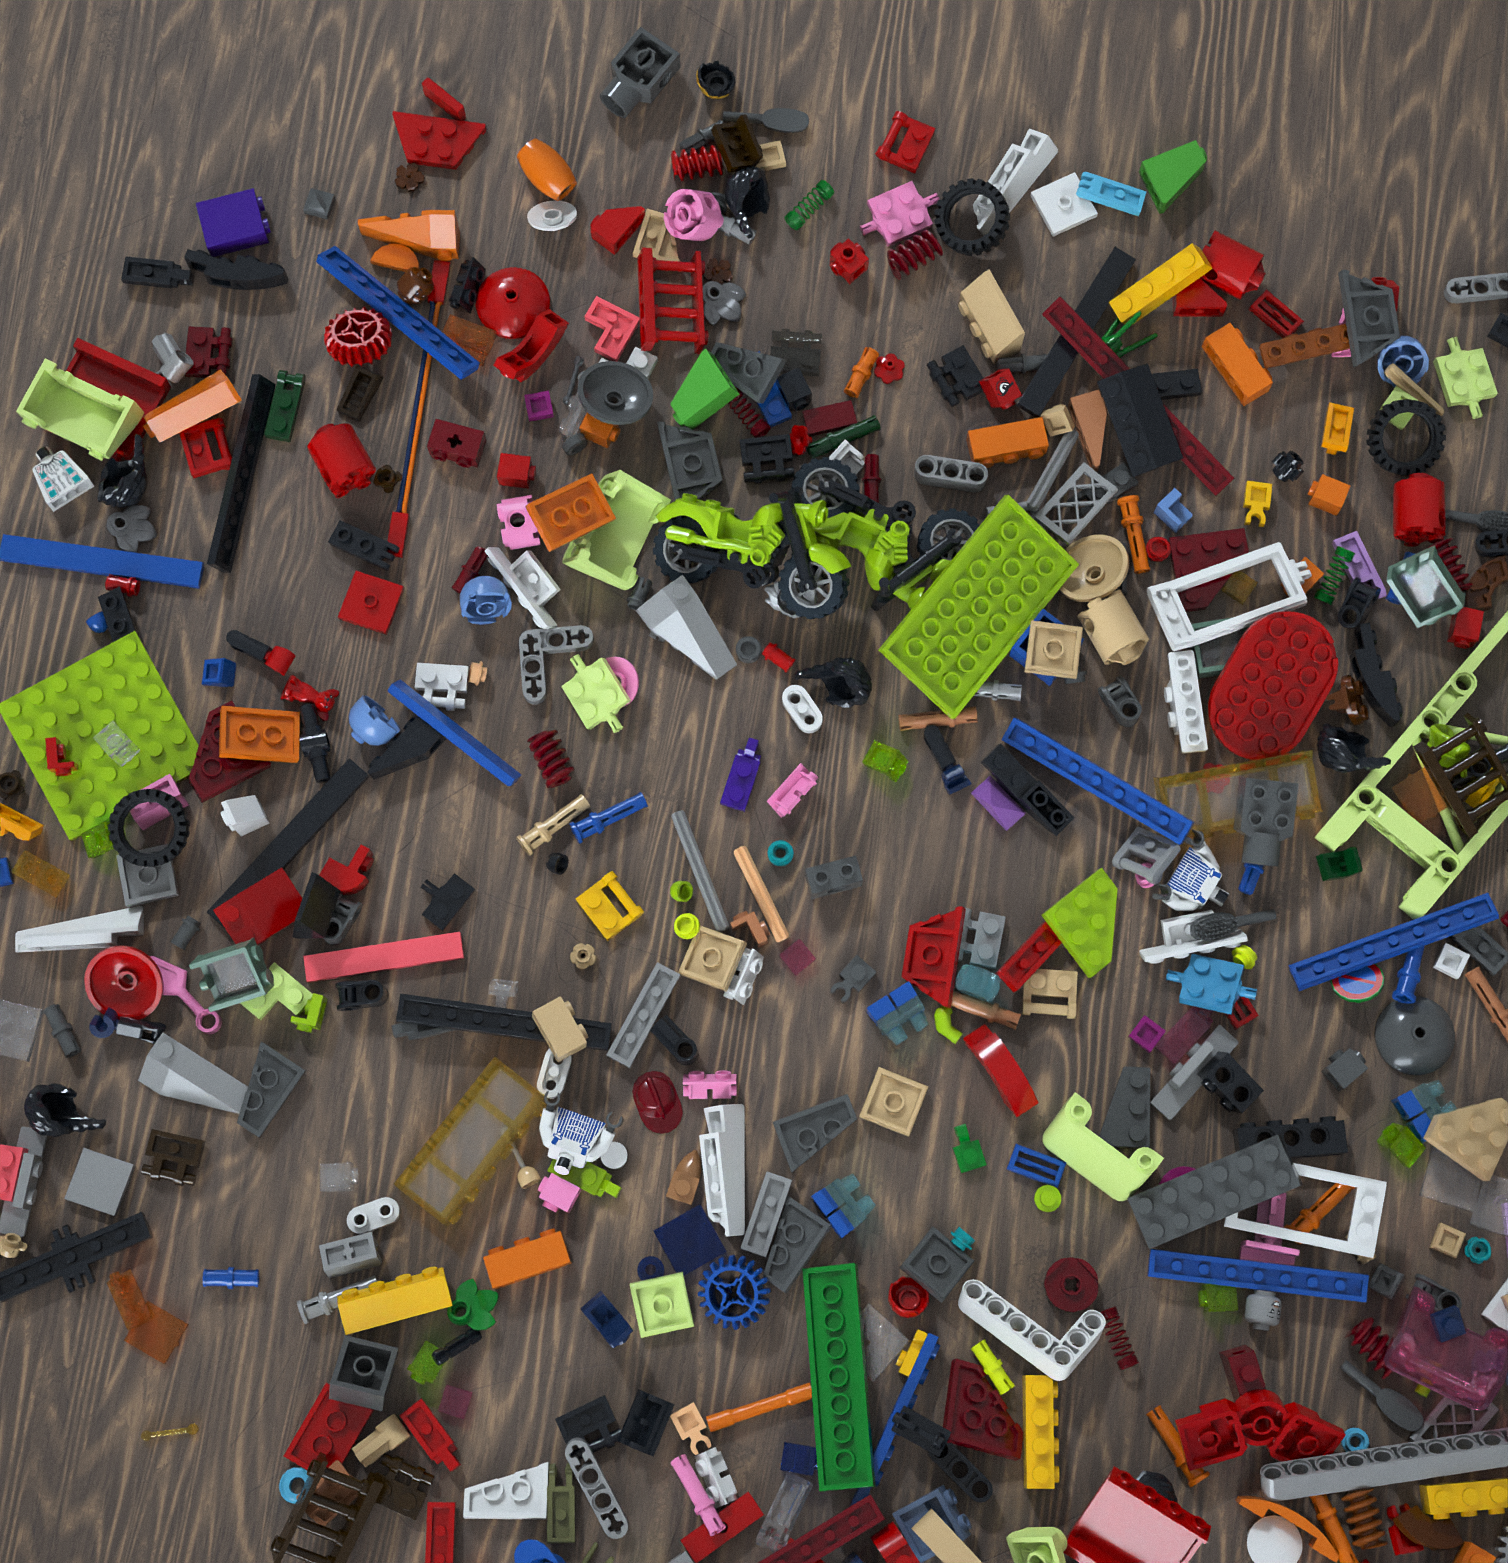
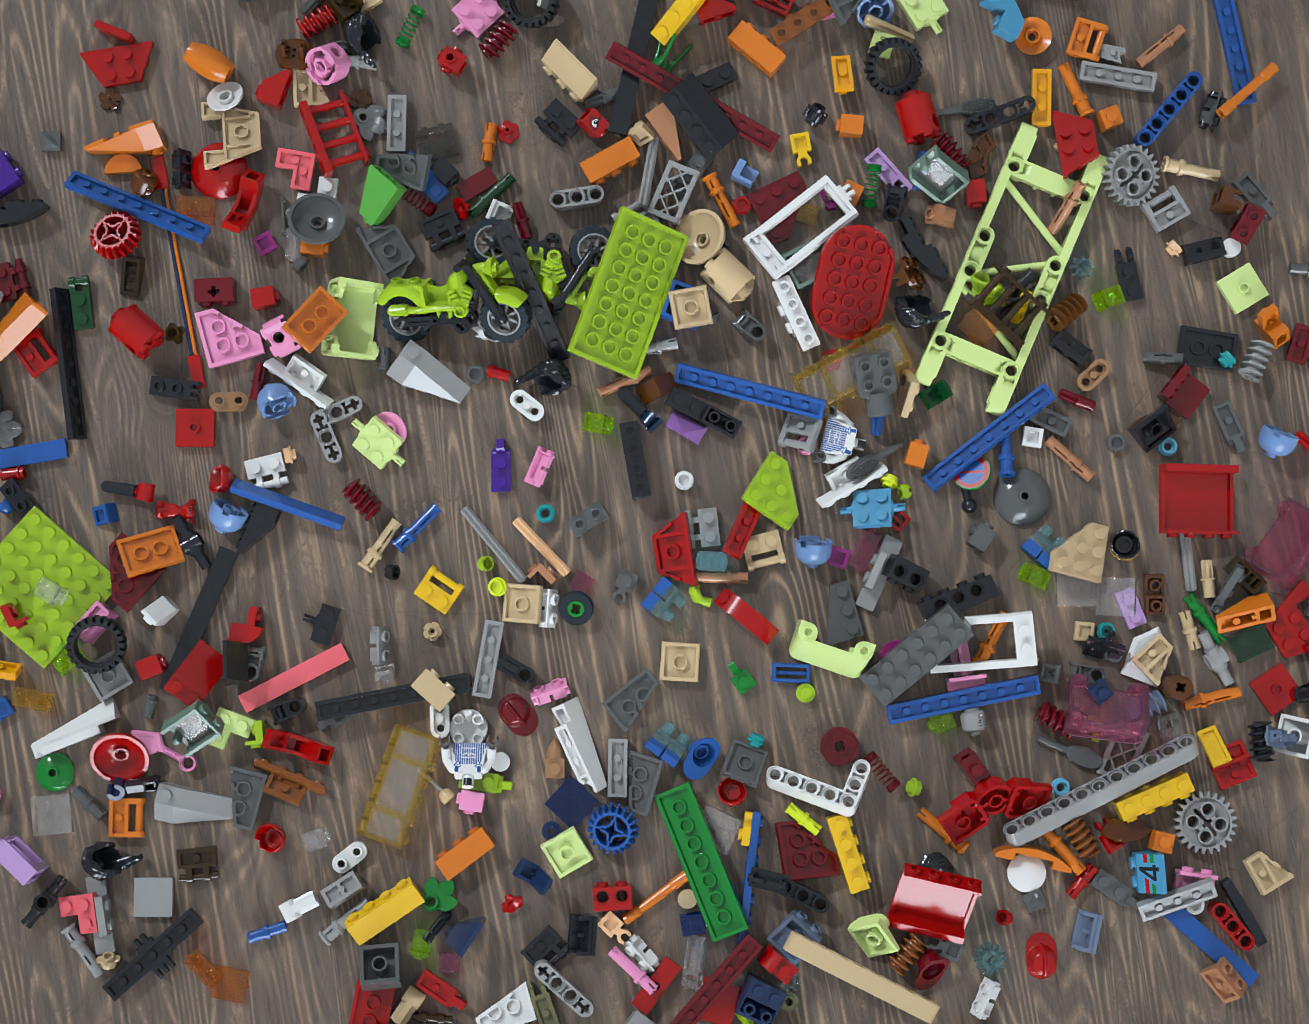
camera: 20 degrees left, 10 degrees up
(45, 981) = (64, 772): none -> green dish
(95, 1063) = (120, 817): none -> orange plate
(207, 881) = (151, 666): none -> red brick
(277, 1258) = (296, 907): none -> white piece
(279, 1153) = (270, 837): none -> red hair
(326, 1091) = (286, 784): none -> dark orange bracket
(358, 1044) = (298, 745): none -> red arch
(380, 675) = (221, 479): none -> red hair
(424, 584) = (228, 403): none -> medium nougat plate
(449, 506) = (226, 339): none -> bright pink plate
(488, 1368) = (462, 934): none -> dark blue slope
(506, 963) = (380, 636): none -> light grey hinge
(554, 265) = (240, 134): none -> tan wing
(565, 1349) = (512, 903): none -> red plant
(588, 1095) = (468, 727): none -> white dish
(652, 191) = (292, 54): none -> reddish brown plate
(701, 1392) = (613, 902): none -> red brick
(753, 313) = (396, 124): none -> light grey plate
(769, 979) = (566, 606): none -> black bush
(801, 1423) = (686, 898): none -> tan tile
(856, 549) = (528, 282): none -> black plate
(882, 1236) = (701, 757): none -> blue piece
(919, 822) = (635, 460): none -> black brick
(974, 869) = (684, 480): none -> white plate
(975, 740) = (656, 387): none -> reddish brown slope
(1115, 1013) = (812, 550): none -> medium blue cylinder
(1155, 1373) = (913, 787): none -> lime plate
(1258, 976) = (903, 491): none -> lime hinge
(1272, 584) = (830, 205): none -> magenta hand
(1290, 933) = (916, 454): none -> orange brick
(1301, 851) = (907, 394): none -> tan wing
(1340, 1022) = (968, 505): none -> black bar
(1412, 641) = (940, 215): none -> nougat bracket
(1469, 1271) = (1104, 648): none -> black plate

